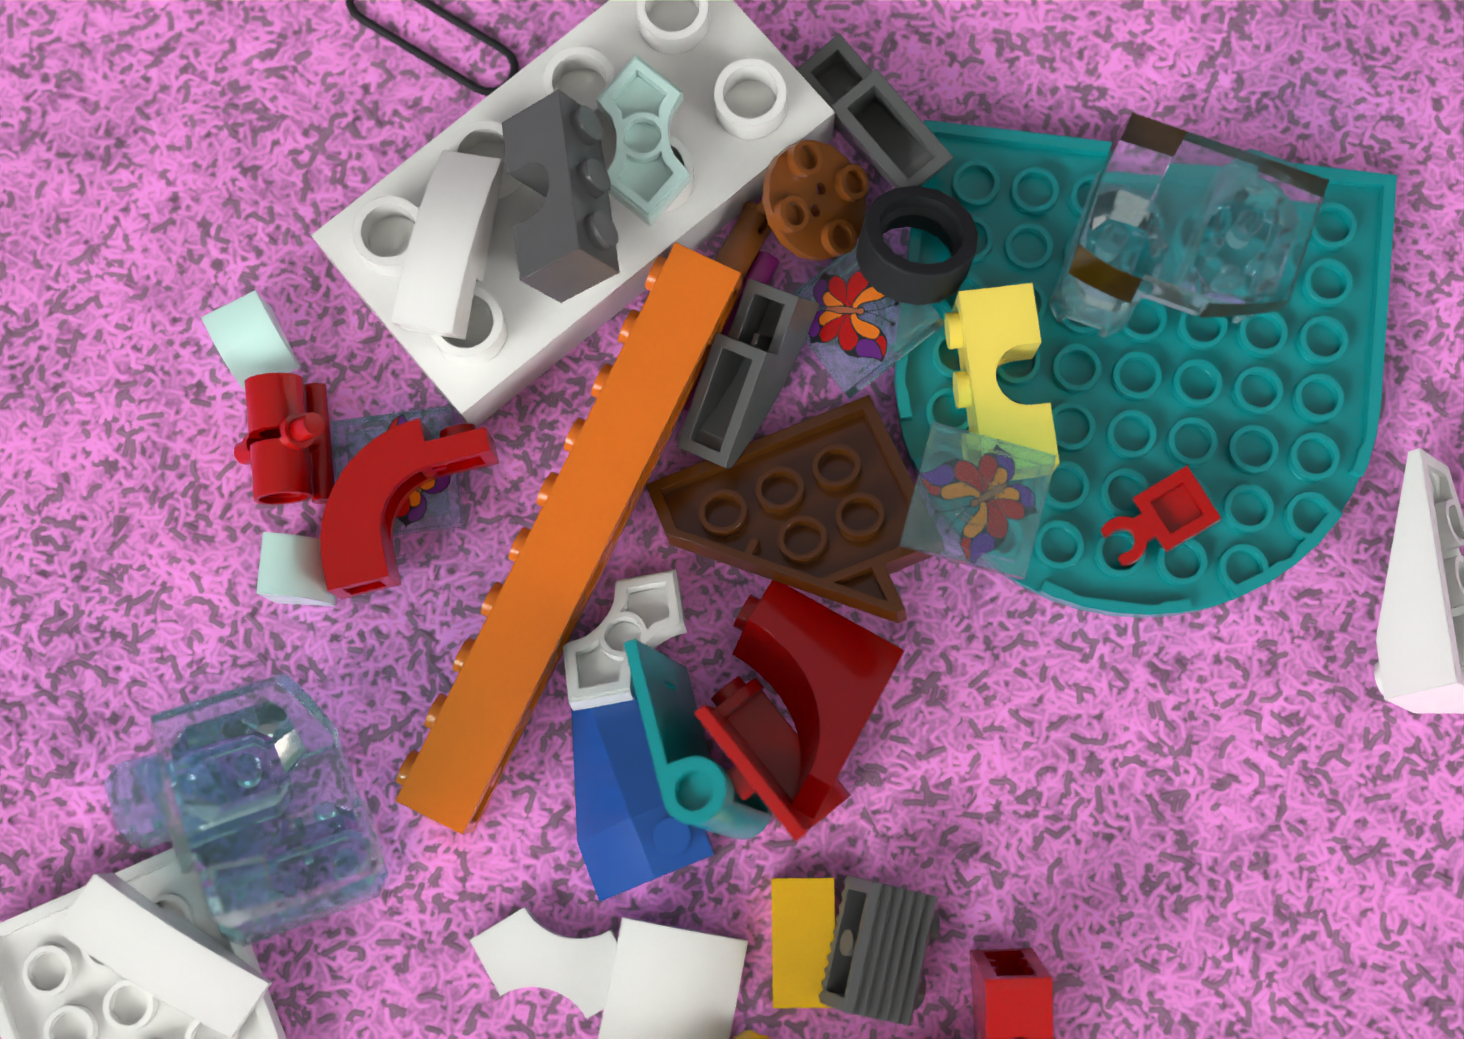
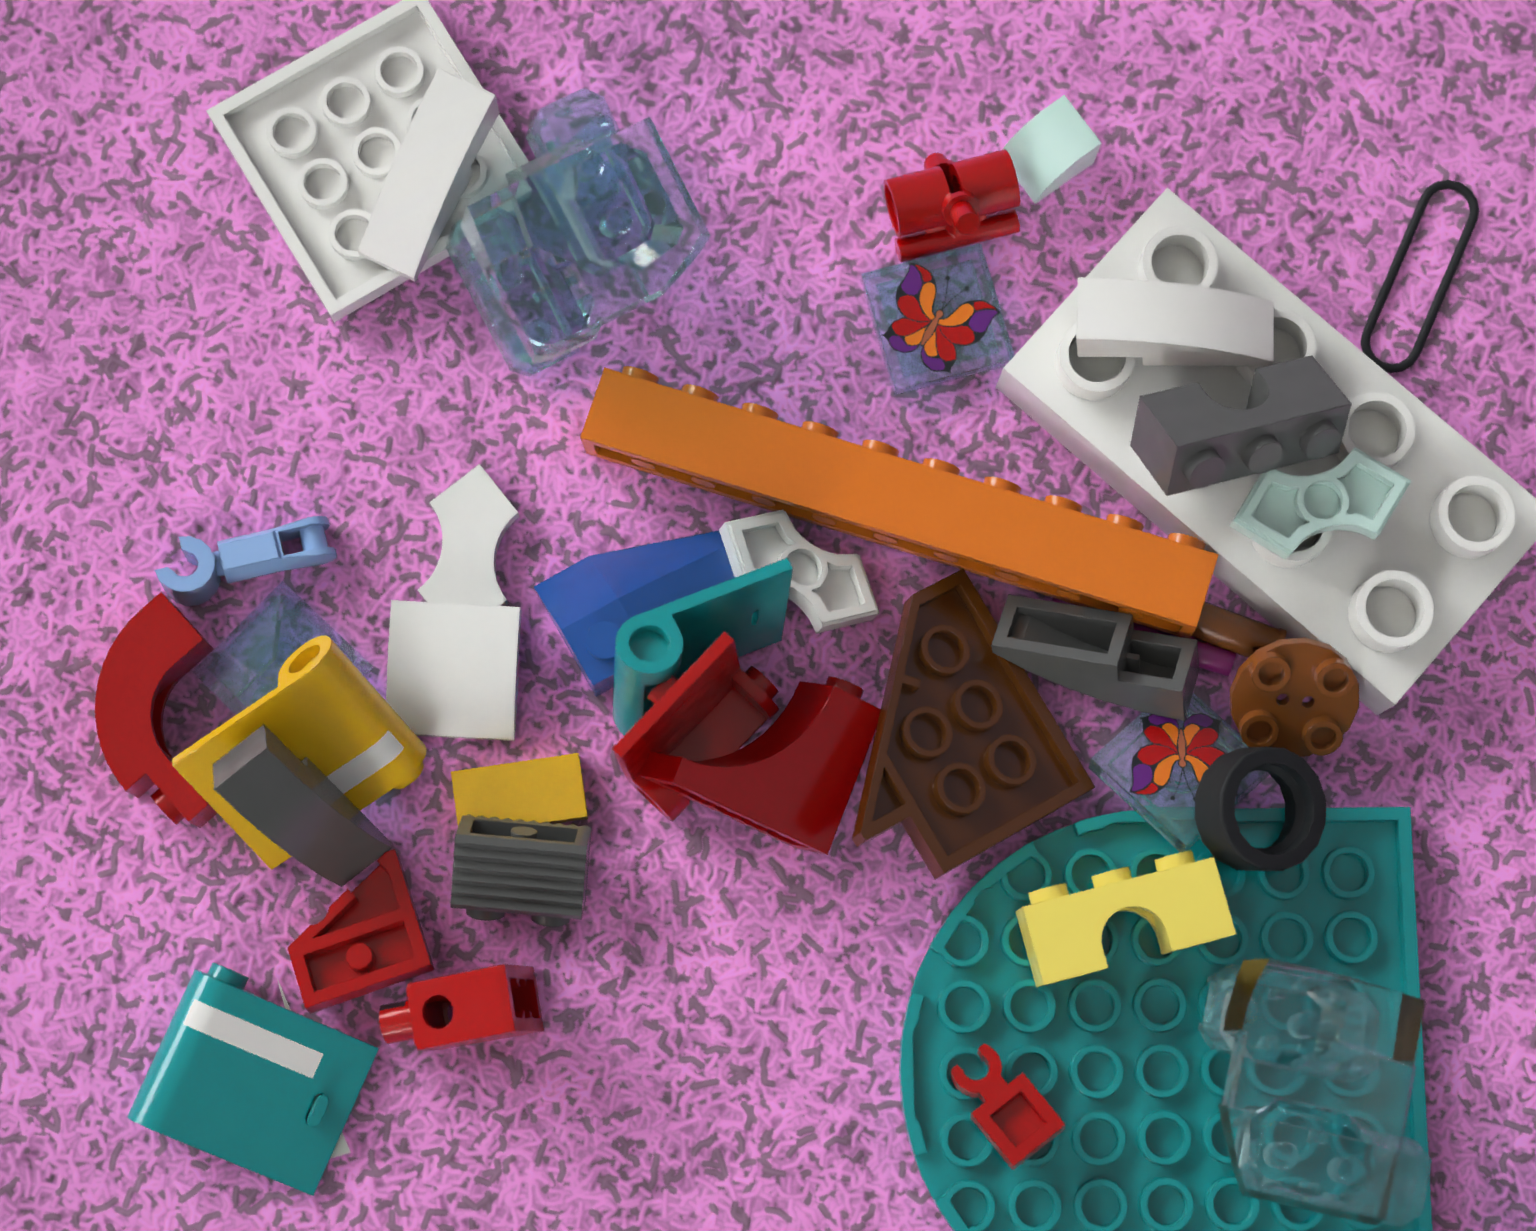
camera: 70 degrees right, 0 degrees up
(292, 570) = (822, 237): light aqua brick -> none
(372, 489) = (911, 293): red arch -> none
(874, 116) = (1402, 748): dark grey slope -> none
(977, 501) = (990, 901): clear light blue tile -> none

